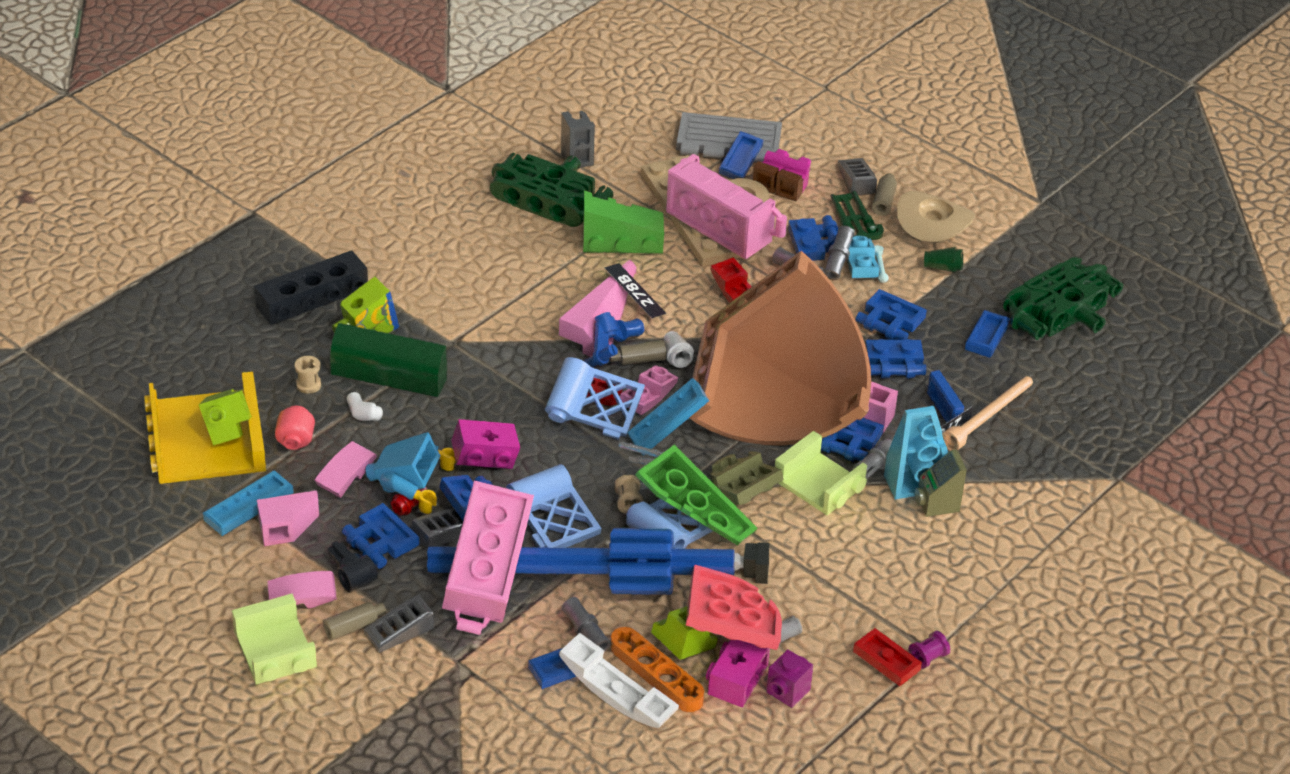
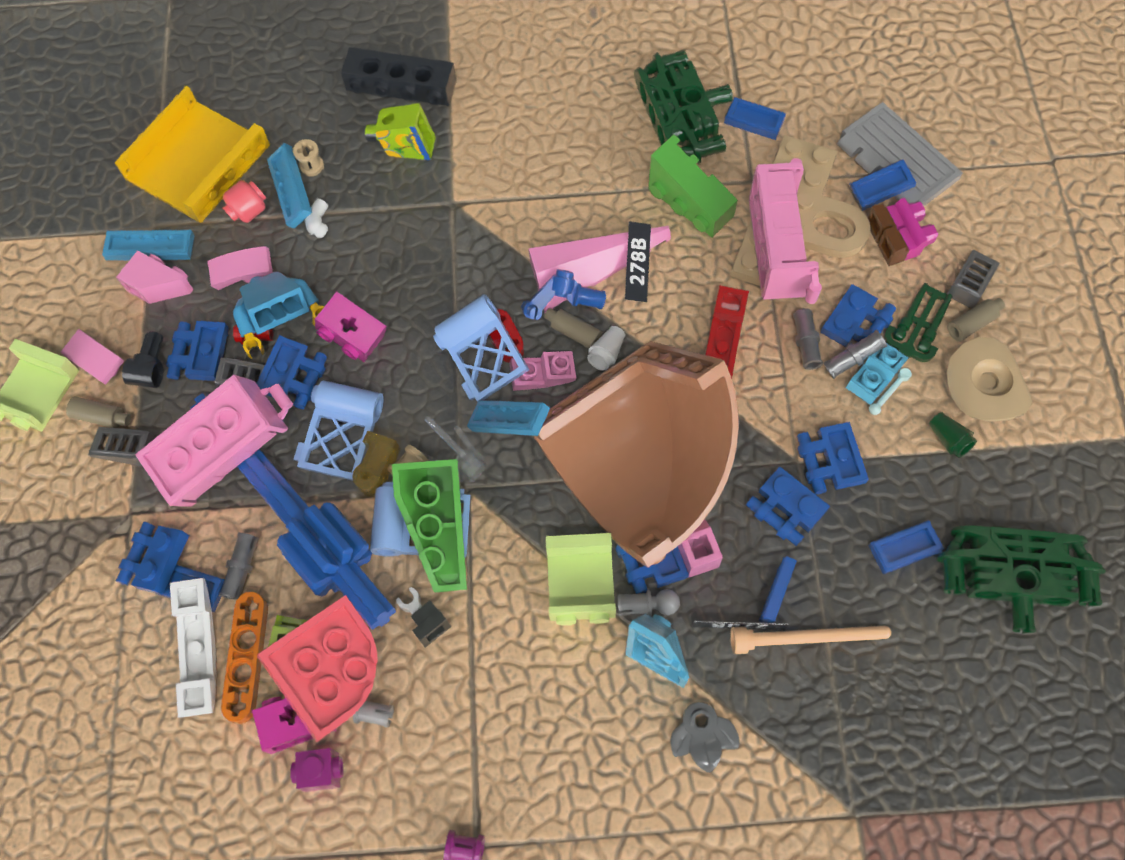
camera: 50 degrees right, 25 degrees up
(223, 415) = (200, 152): lime brick -> none
(316, 399) = (289, 186): none -> dark azure plate
(388, 360) = (370, 190): dark green brick -> none
(526, 657) = (159, 560): none -> blue plate
(578, 138) = (746, 72): dark grey hinge -> none
(604, 504) = (373, 470): none -> clear yellow leg
(608, 168) = (755, 118): none -> blue tile
(744, 477) = (513, 526): olive slope -> none
(887, 657) = (423, 822): red plate -> none
(942, 486) = (657, 688): olive slope -> none
(992, 499) = (704, 741): none -> dark grey plate

